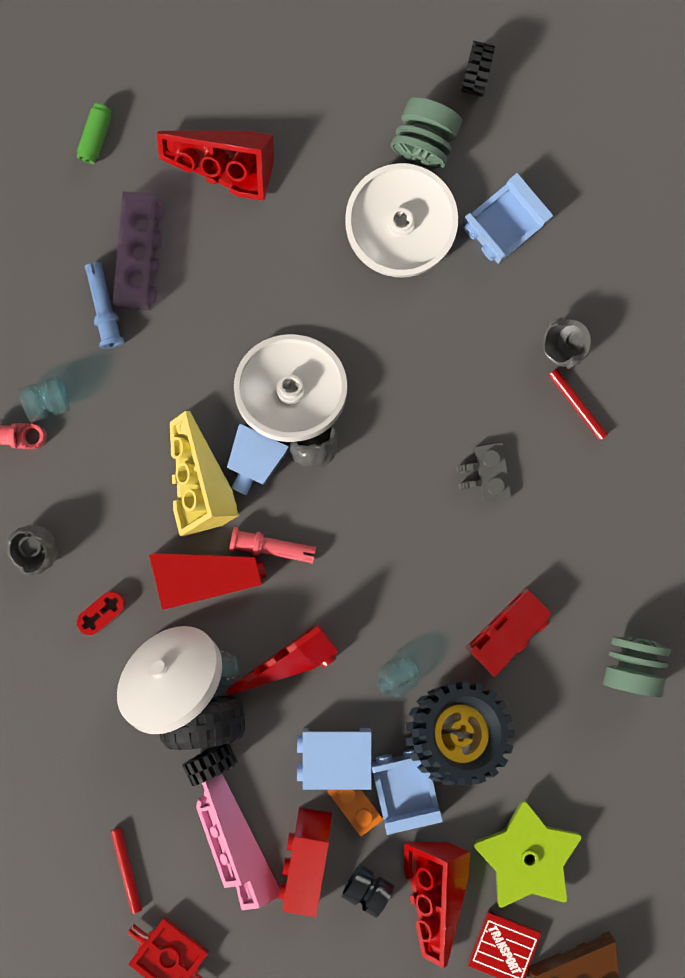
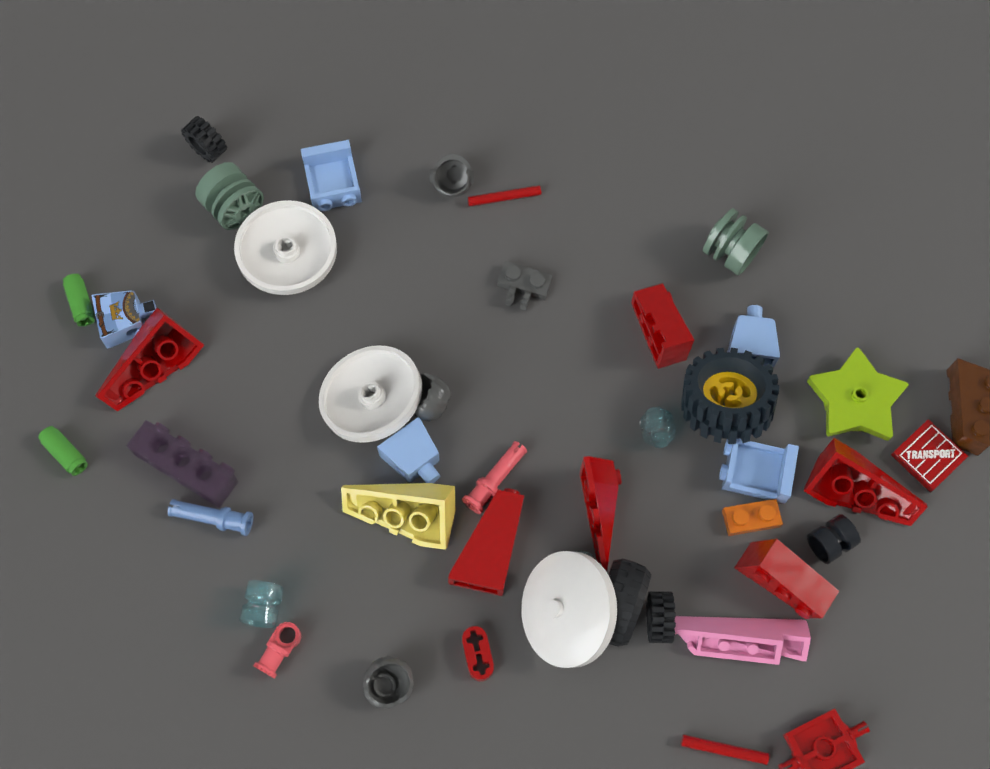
camera: 65 degrees left, 20 degrees down
(247, 52) = (78, 300): none -> bright green piece
(249, 103) = (120, 316): none -> torso
(335, 760) = (705, 511): light blue panel -> none
(541, 728) = (756, 335): none -> light blue torso

